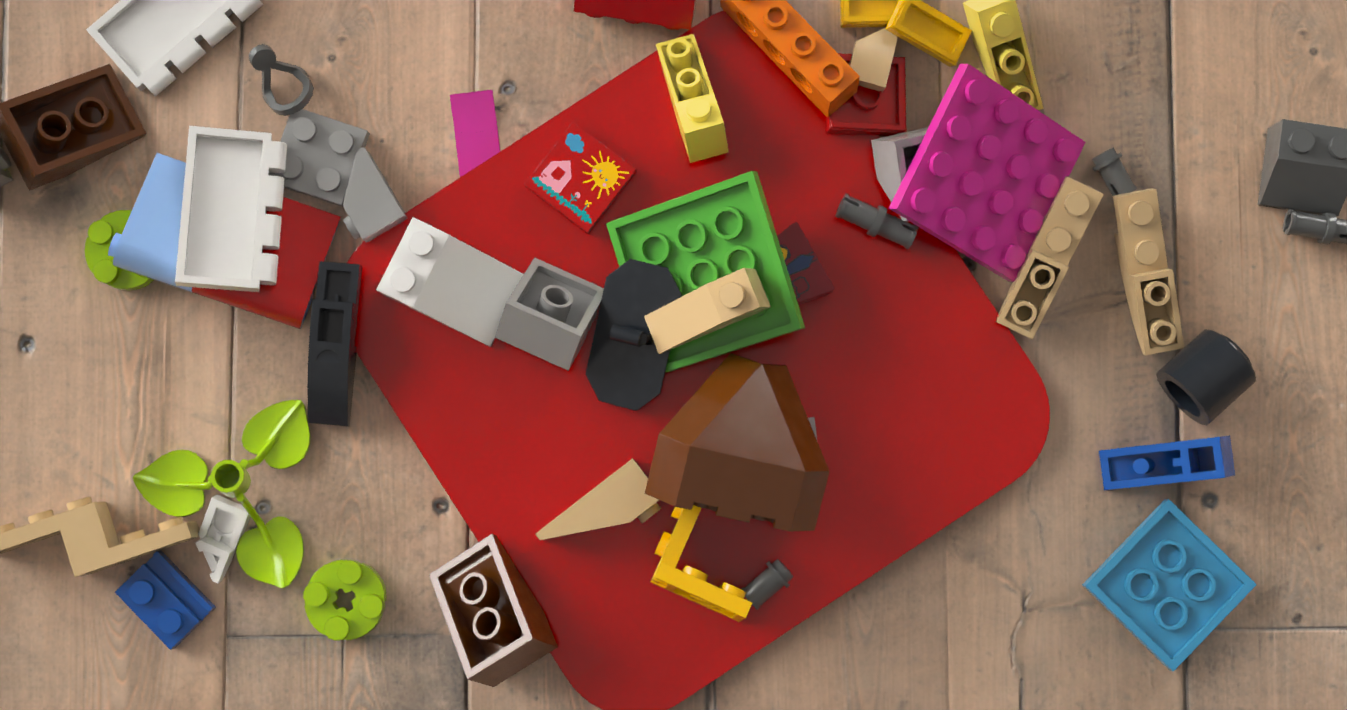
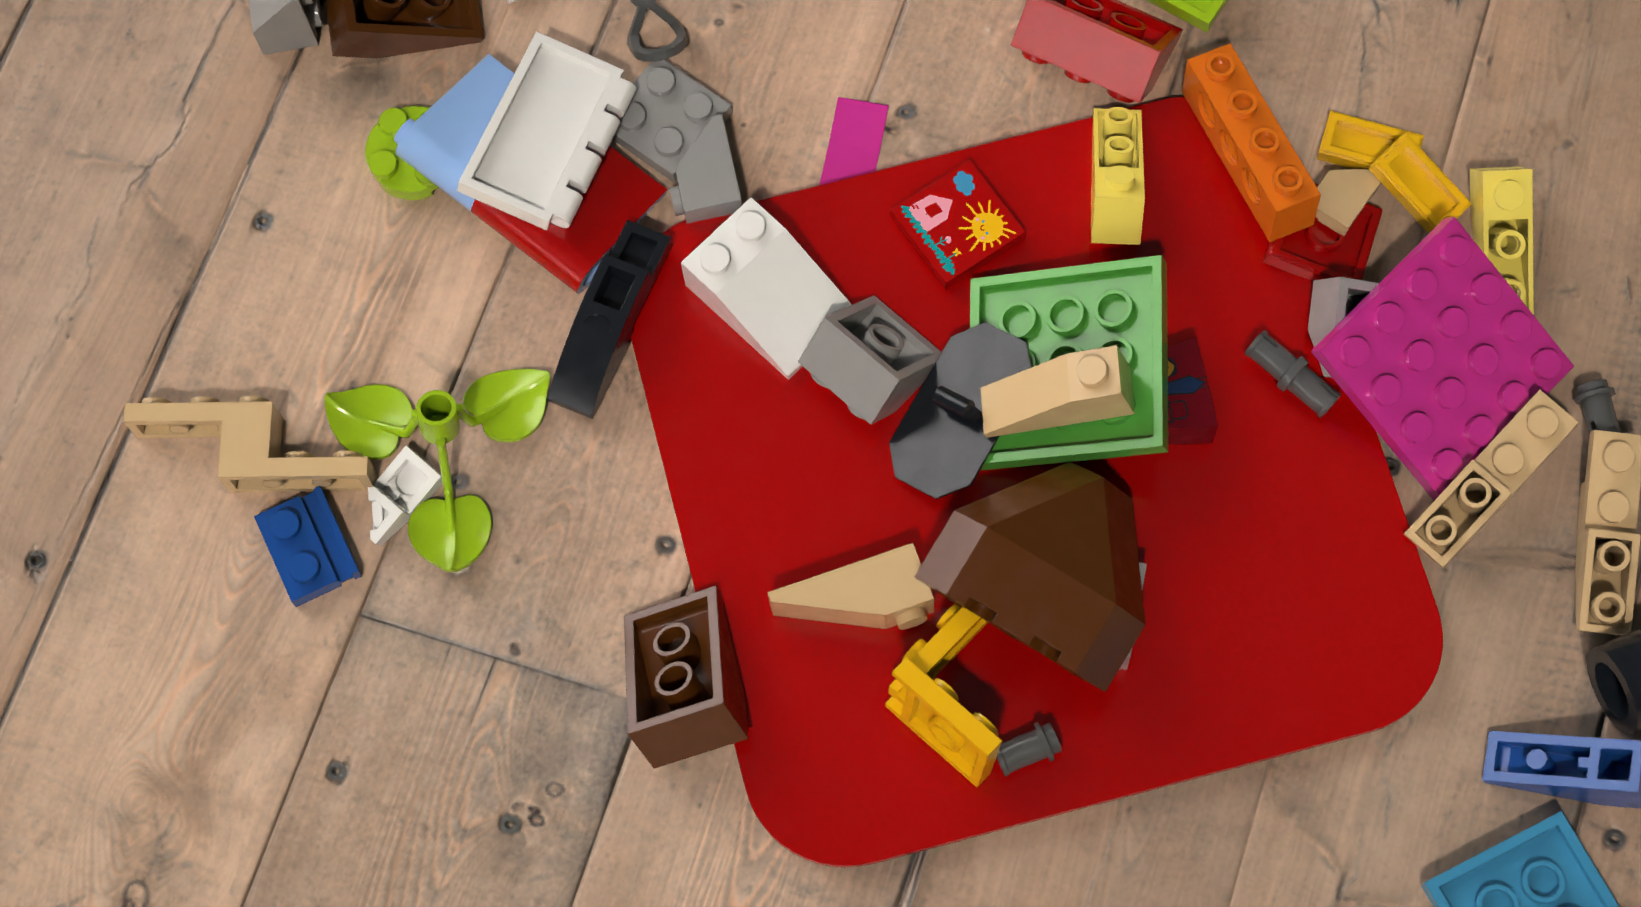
camera: 25 degrees right, 15 degrees down
(322, 594) = (540, 626): lime plate -> none

